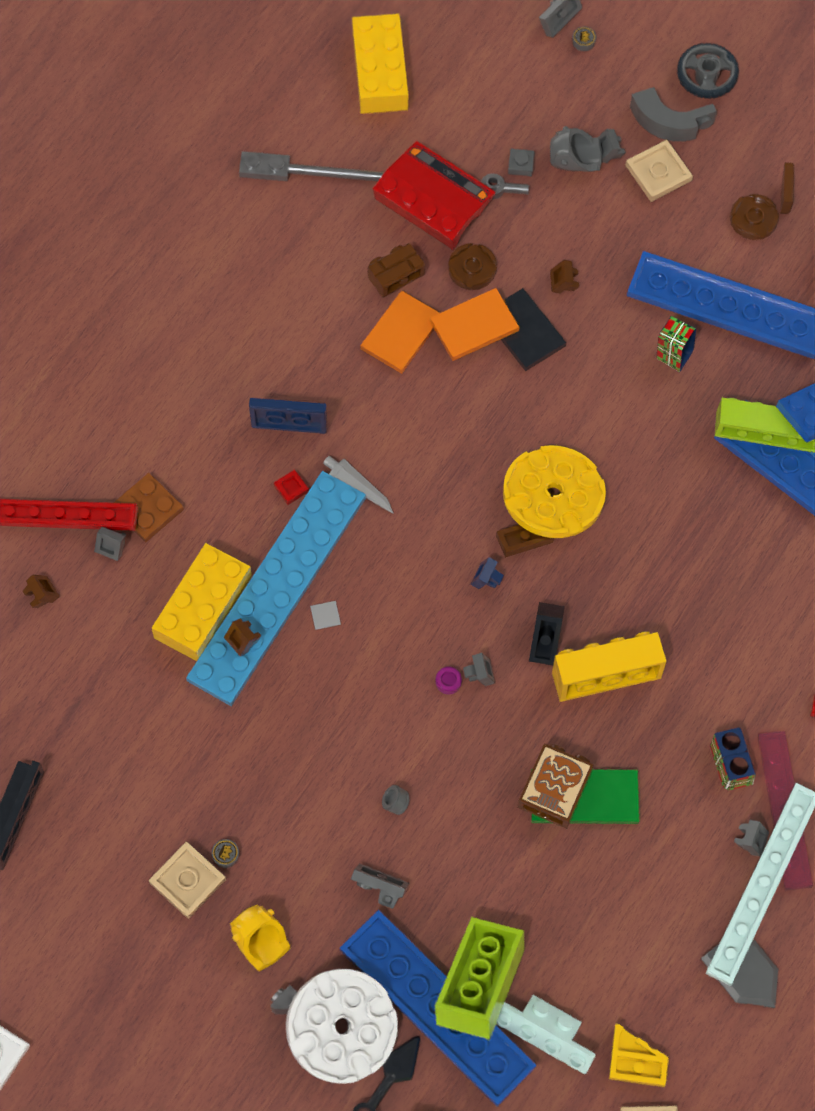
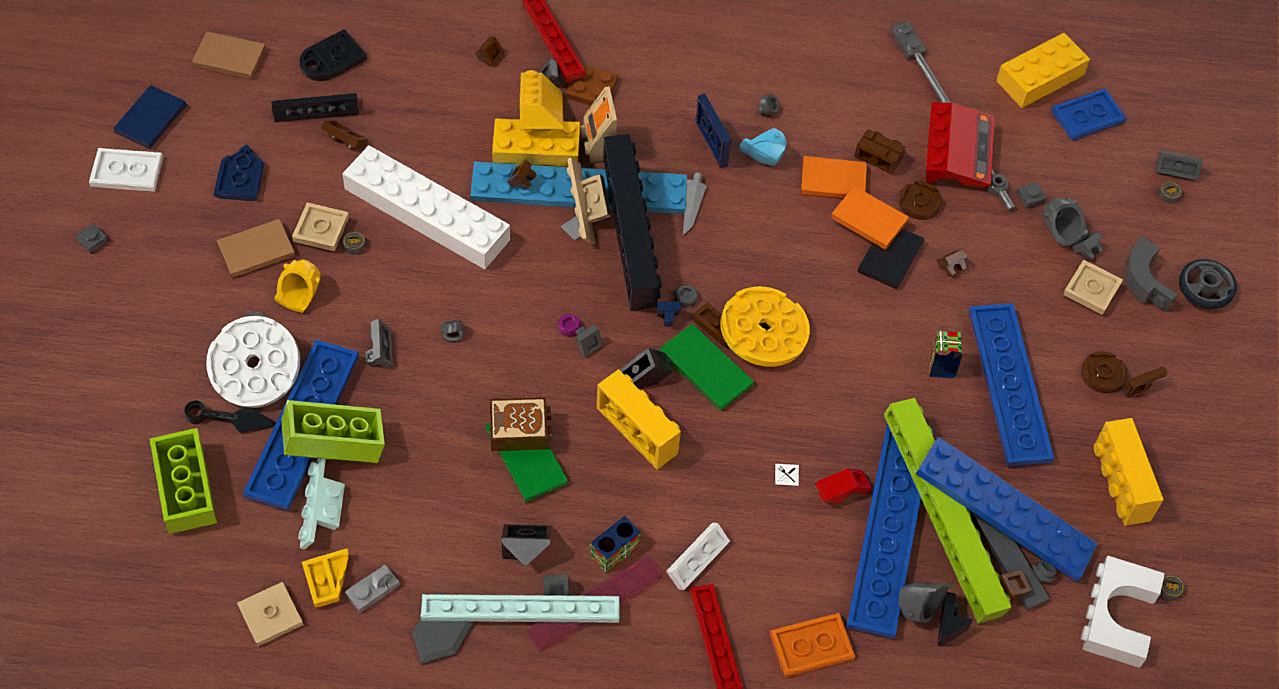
camera: 60 degrees right, 10 degrees down
(63, 939) = (239, 176): none -> dark blue tile
(71, 799) = (339, 131): none -> reddish brown plate
(158, 572) = (540, 102): none -> yellow slope
(176, 963) = (255, 248): none -> medium nougat tile
(223, 755) = (426, 207): none -> white brick
(226, 523) = (598, 123): none -> tan slope
(276, 343) = (768, 105): none -> dark grey tile
(291, 487) = (662, 162): red tile -> none
(313, 581) = (590, 199): none -> tan bracket
(335, 374) = (765, 148): none -> medium azure helmet
(368, 554) = (631, 222): none -> black brick
(451, 55) = (1088, 114): none -> blue tile
(472, 548) = (686, 295): none -> dark grey tile
(567, 572) = (706, 367): none -> green tile
(668, 1019) = (372, 588): none -> light grey hinge
(690, 841) = (524, 541): none -> black slope
(725, 560) = (786, 474): none -> white sticker
(769, 515) = (841, 484): none -> red slope
(782, 687) = (698, 556): none -> white plate

